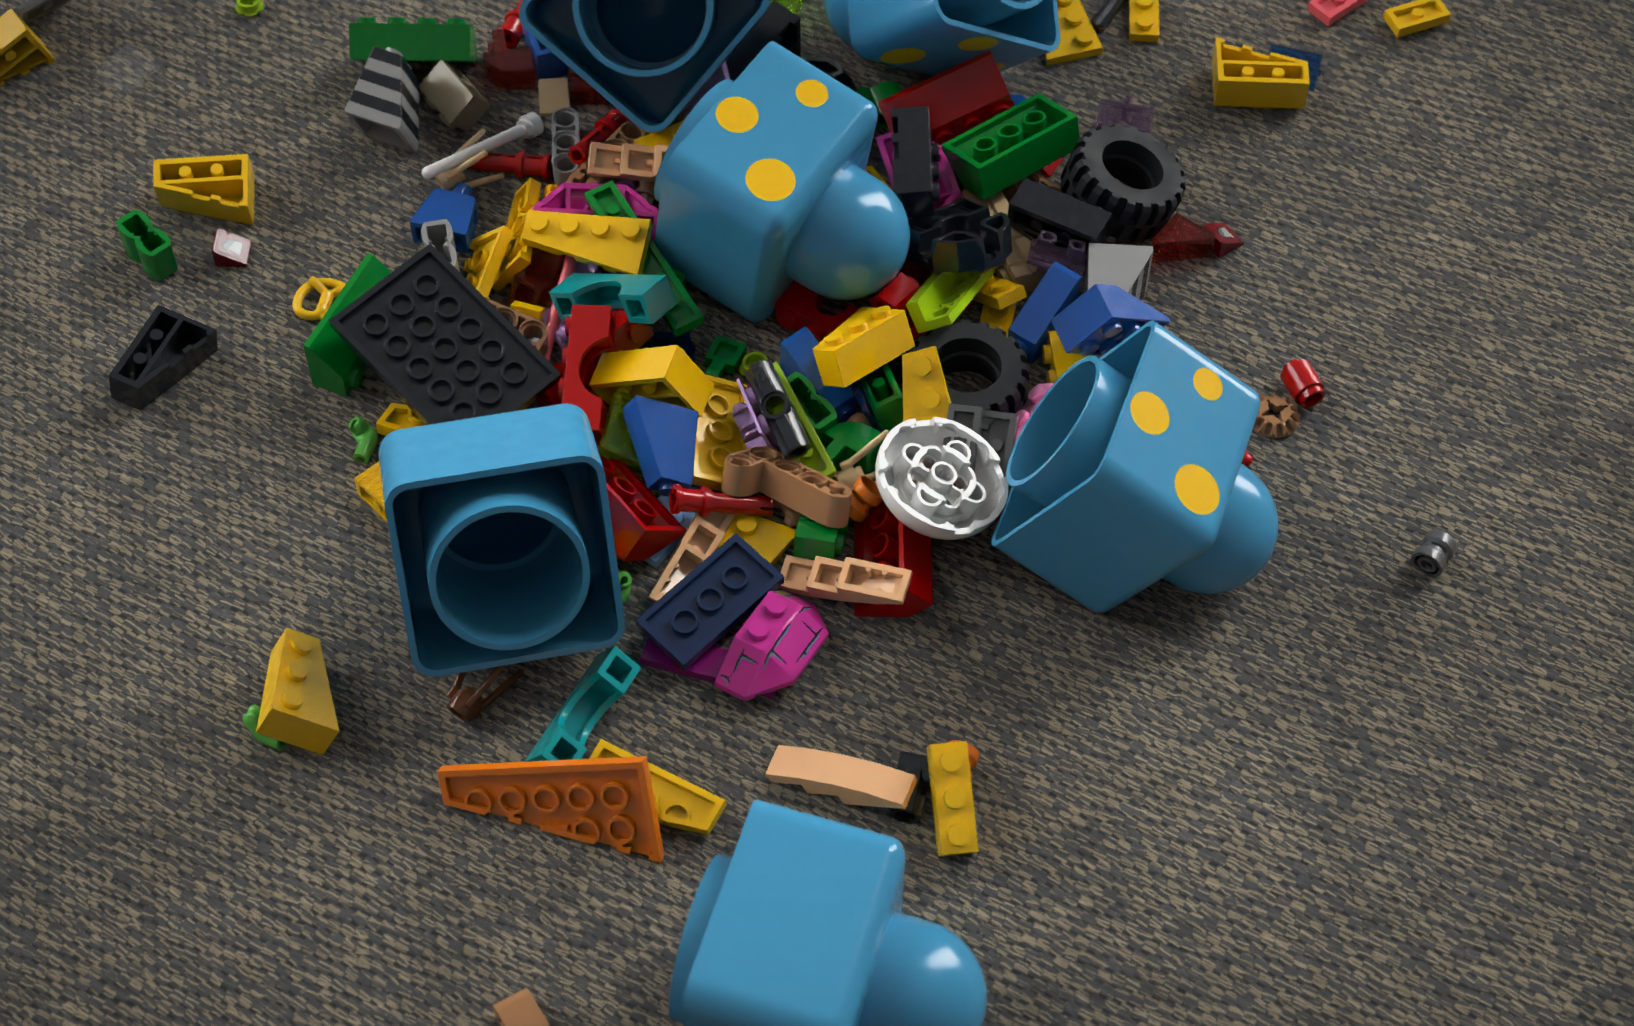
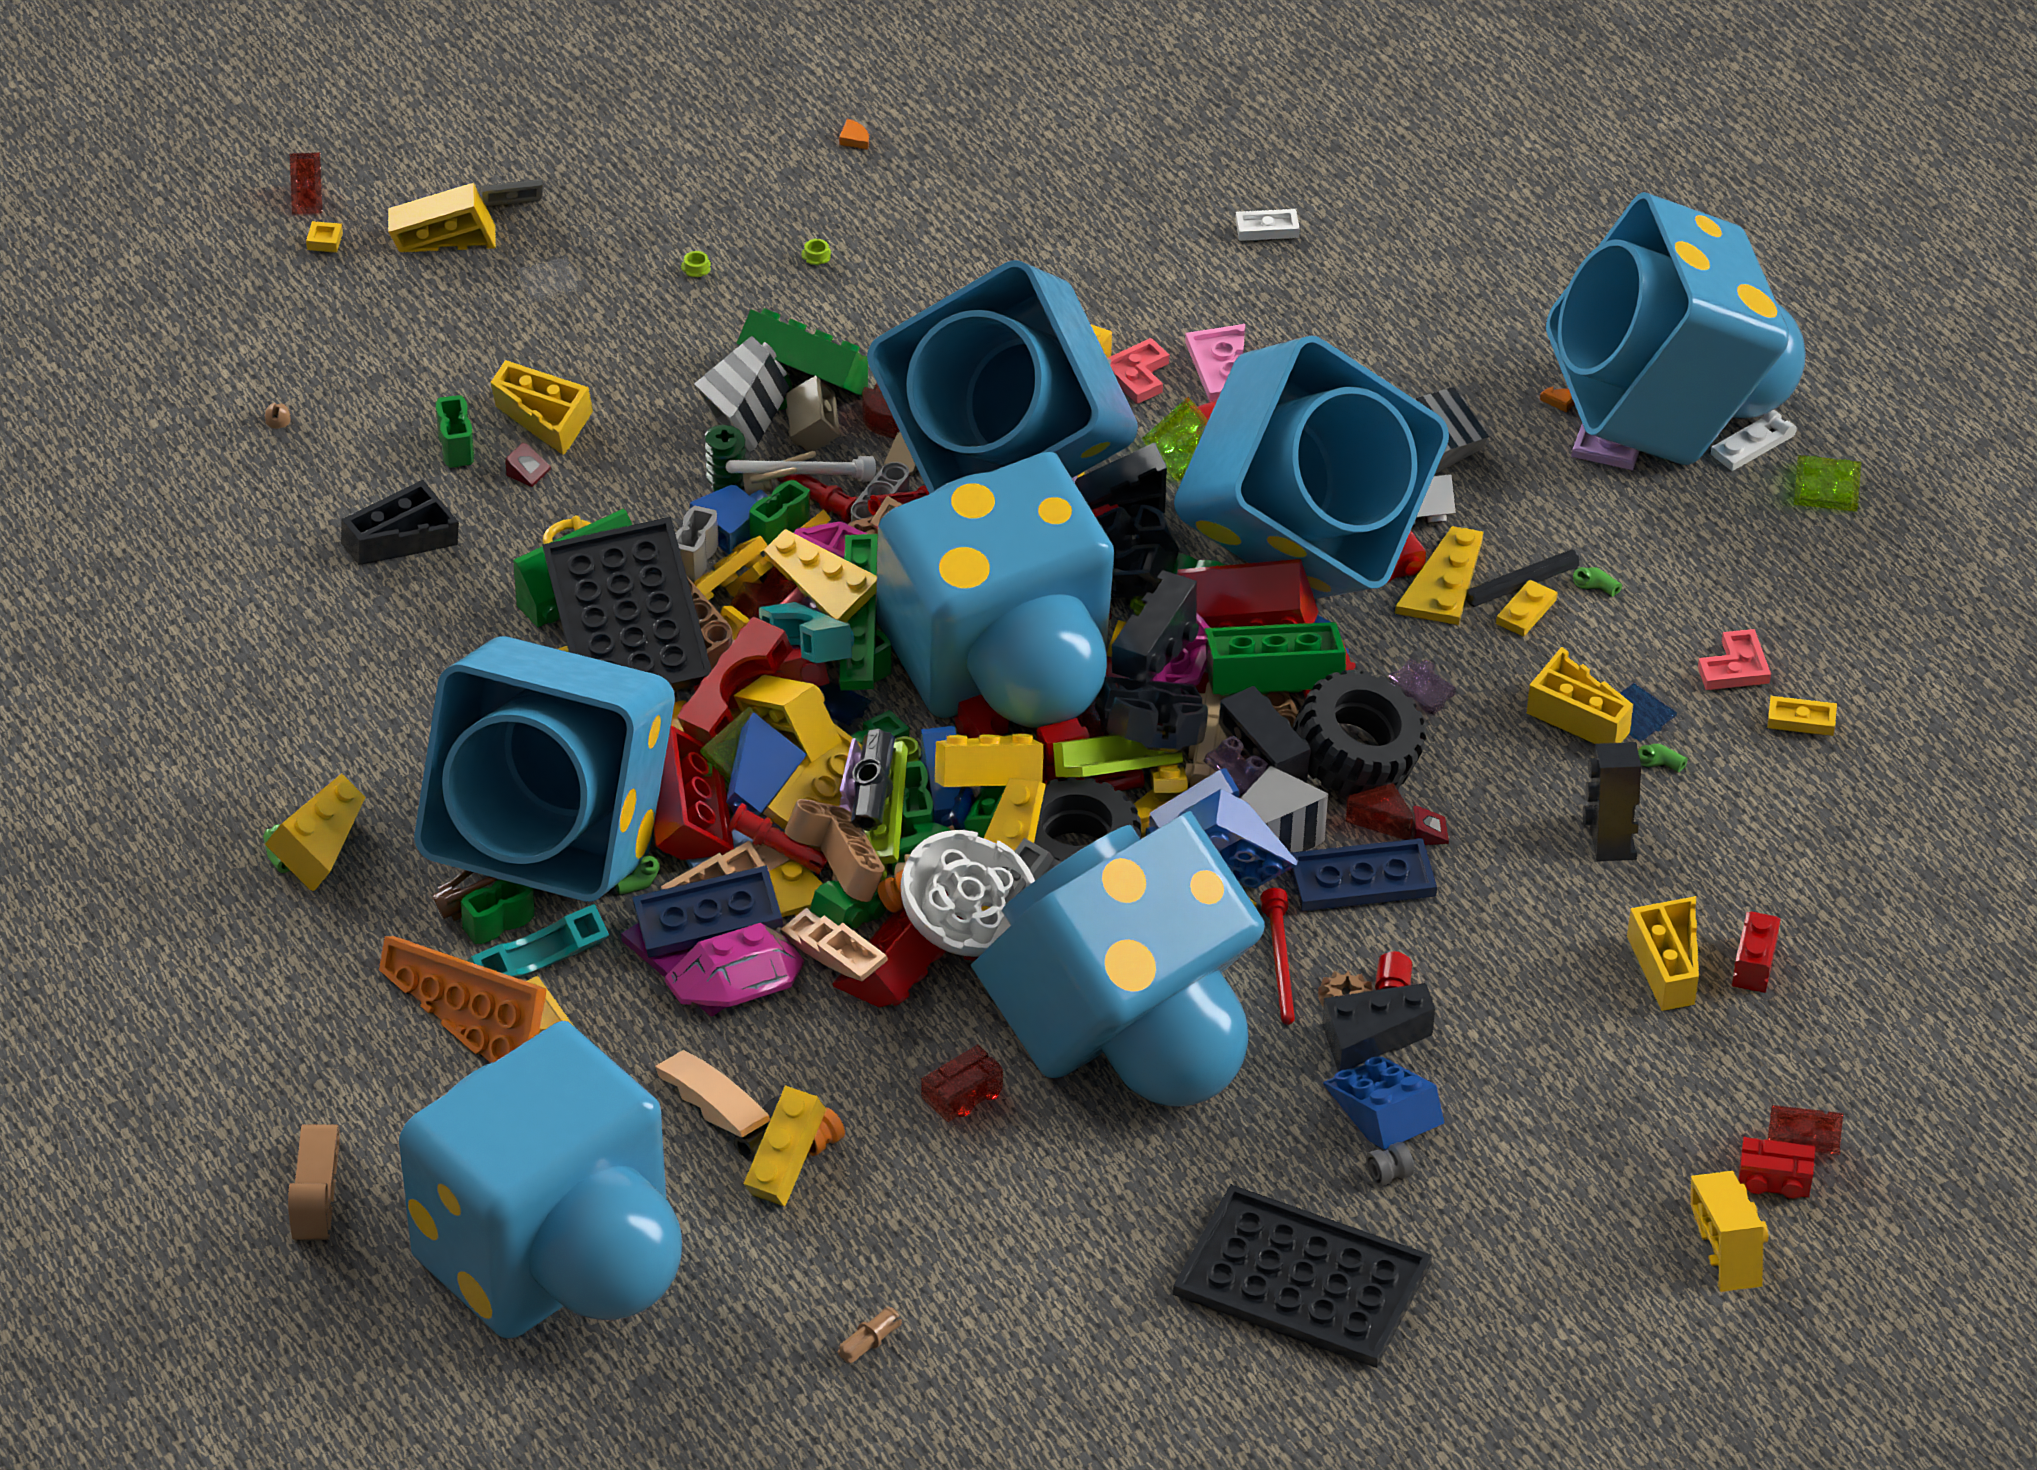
camera: 30 degrees right, 10 degrees down
(408, 159) = (721, 446): none -> dark green piece
(493, 197) = (784, 509): none -> green brick
(516, 692) = (496, 909): none -> green brick
(1041, 656) = (962, 1083): none -> clear red brick
(1148, 944) = (869, 1335): none -> medium nougat axle
(1212, 299) = (1363, 874): none -> dark blue plate
(1323, 432) = (1376, 1022): none -> black wedge
(1341, 95) = (1660, 755): none -> bright green arm
(1358, 150) = (1613, 800): none -> black wedge
(1385, 496) = (1386, 1101): none -> blue slope
(1447, 692) = (1302, 1275): none -> black plate
(1492, 260) = (1667, 949): none -> yellow wedge
(1551, 228) = (1756, 951): none -> red brick

